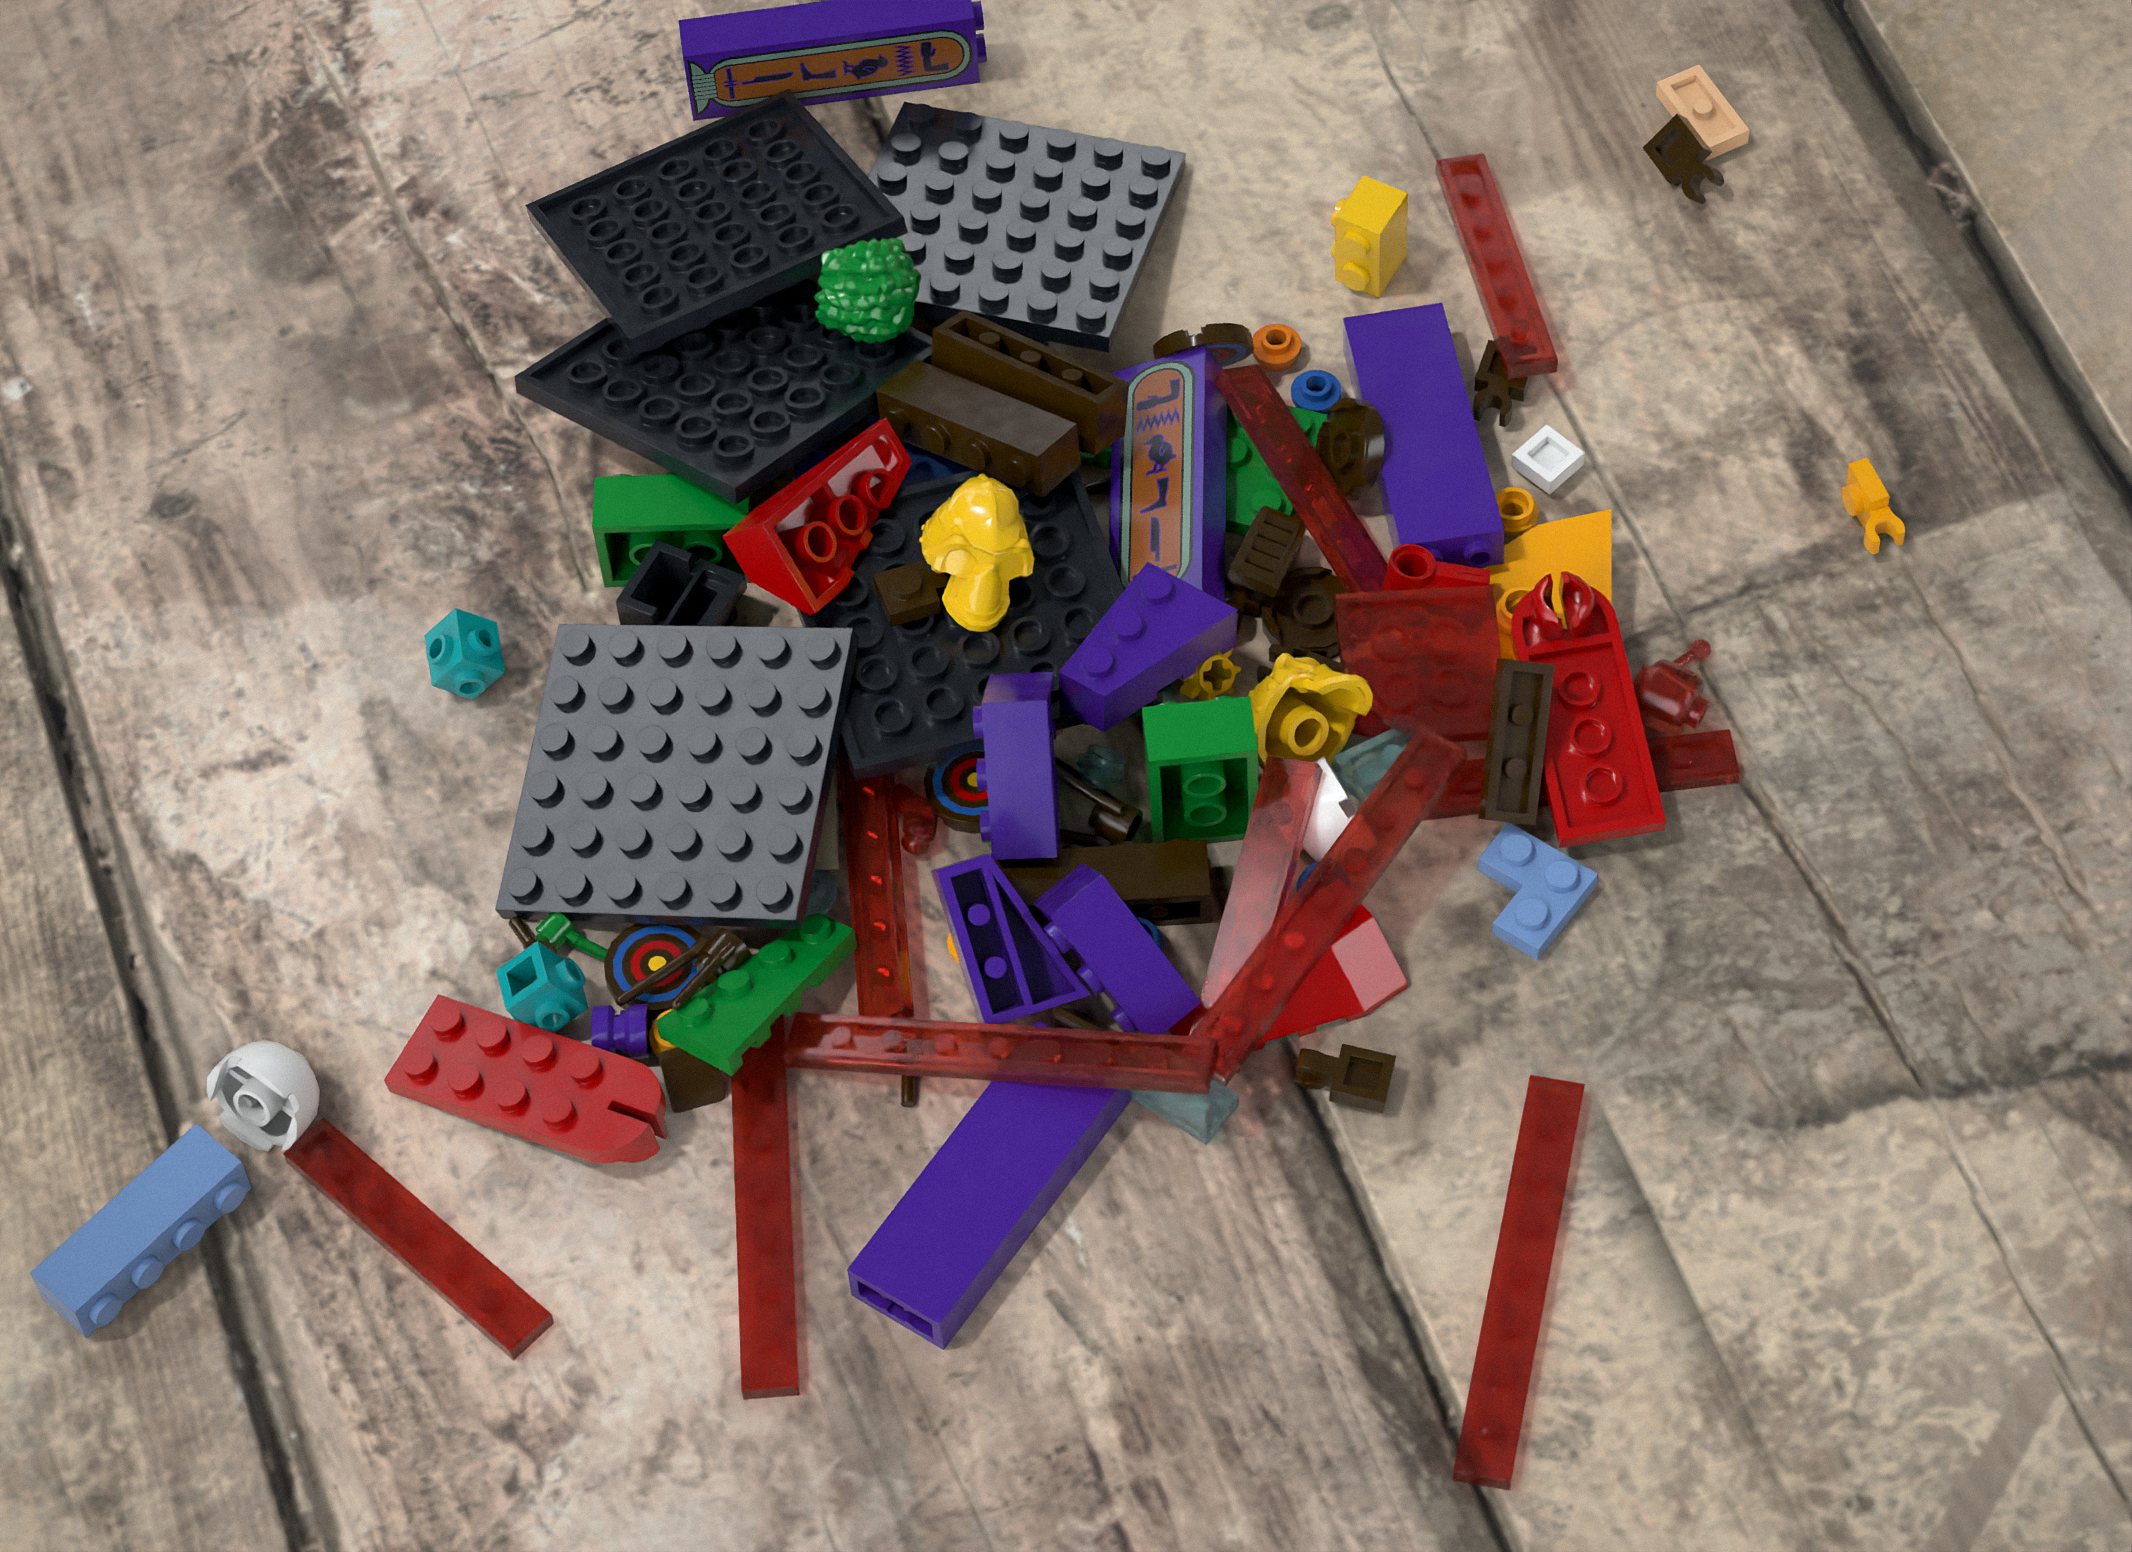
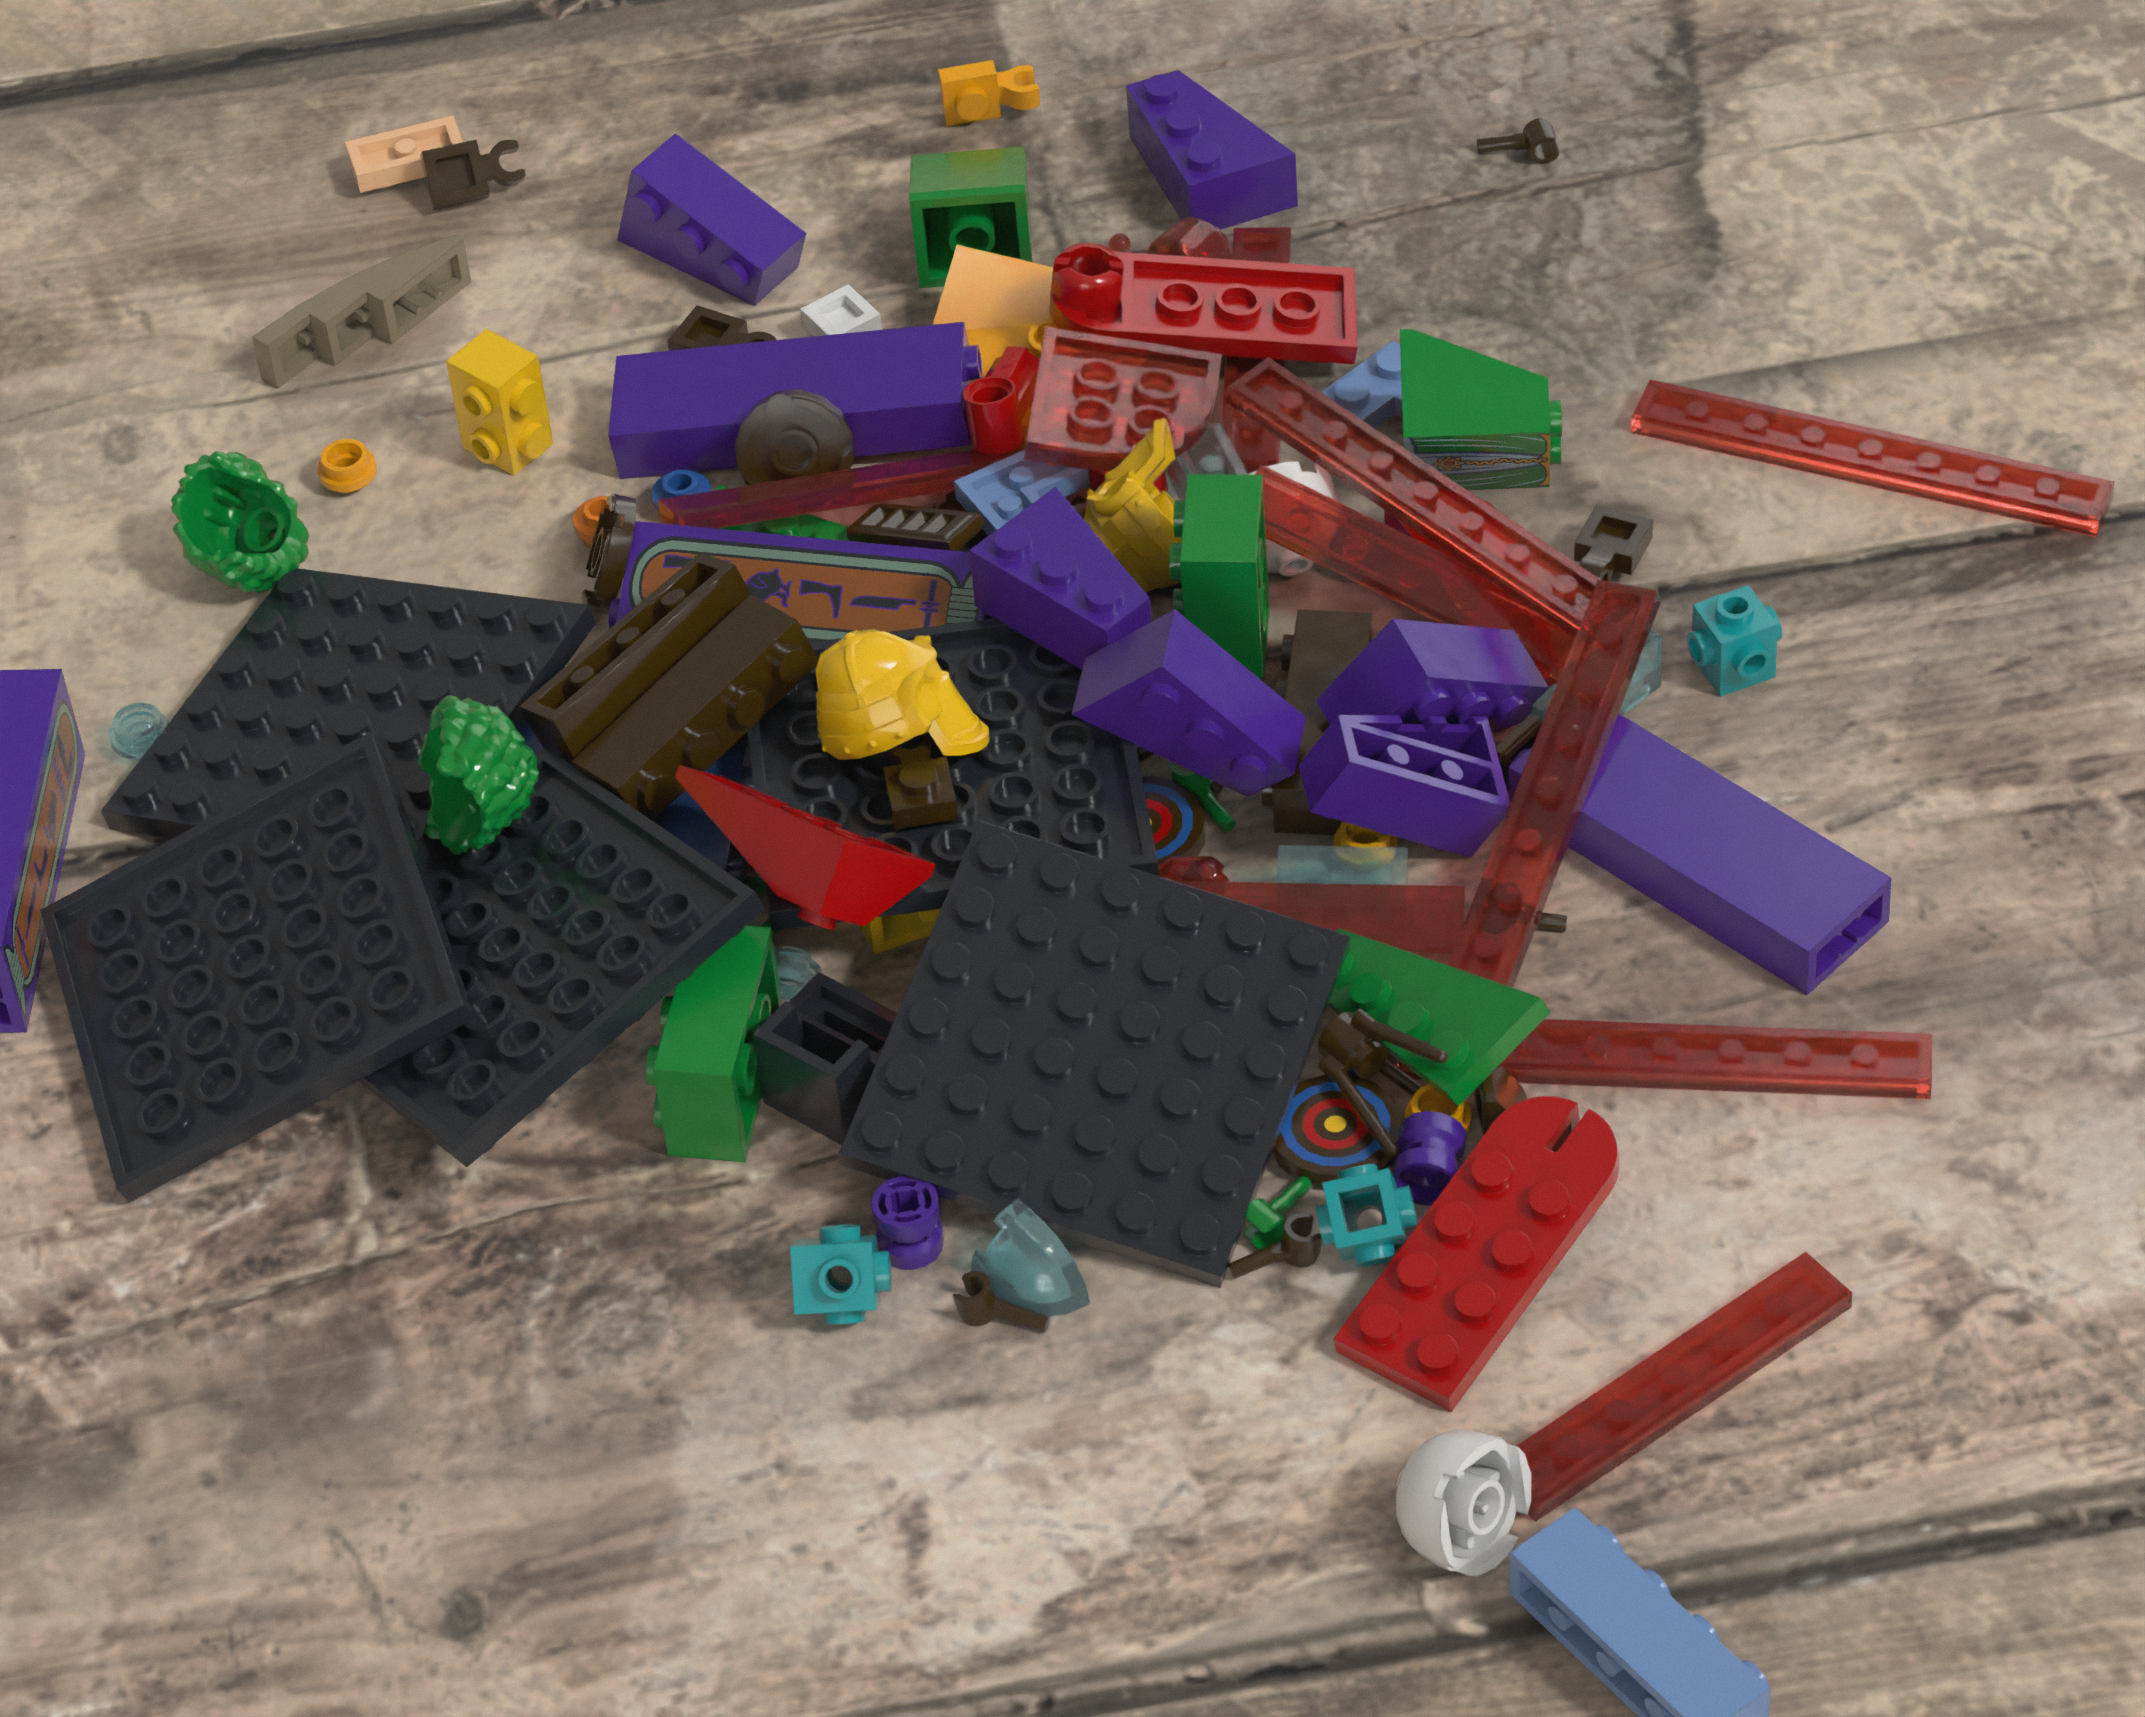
camera: 80 degrees left, 10 degrees down
(466, 766) = (985, 1306): none -> dark brown hand
(496, 784) = (1031, 1264): none -> clear light blue brick
(522, 689) = (908, 1222): none -> dark purple wheel
(926, 929) = (1342, 864): none -> clear light blue plate
(994, 101) = (136, 729): none -> clear light blue plate
(1200, 100) = (238, 522): none -> green hair
(1237, 1181) = (1734, 640): none -> teal brick
(1300, 617) = (1013, 485): none -> medium blue plate
(1311, 163) = (346, 466): none -> light orange plate
(1458, 926) = (1477, 415): none -> green slope
(1496, 266) = (570, 323): clear red tile -> none
(1504, 133) = (376, 301): none -> dark tan slope
(1516, 741) = (1232, 334): dark brown plate -> none
(1631, 334) = (707, 223): none -> dark purple wedge
(1694, 519) = (969, 202): none -> green slope
(1811, 682) = (1207, 153): none -> dark purple wedge
(1906, 955) = (1537, 138): none -> dark brown hand

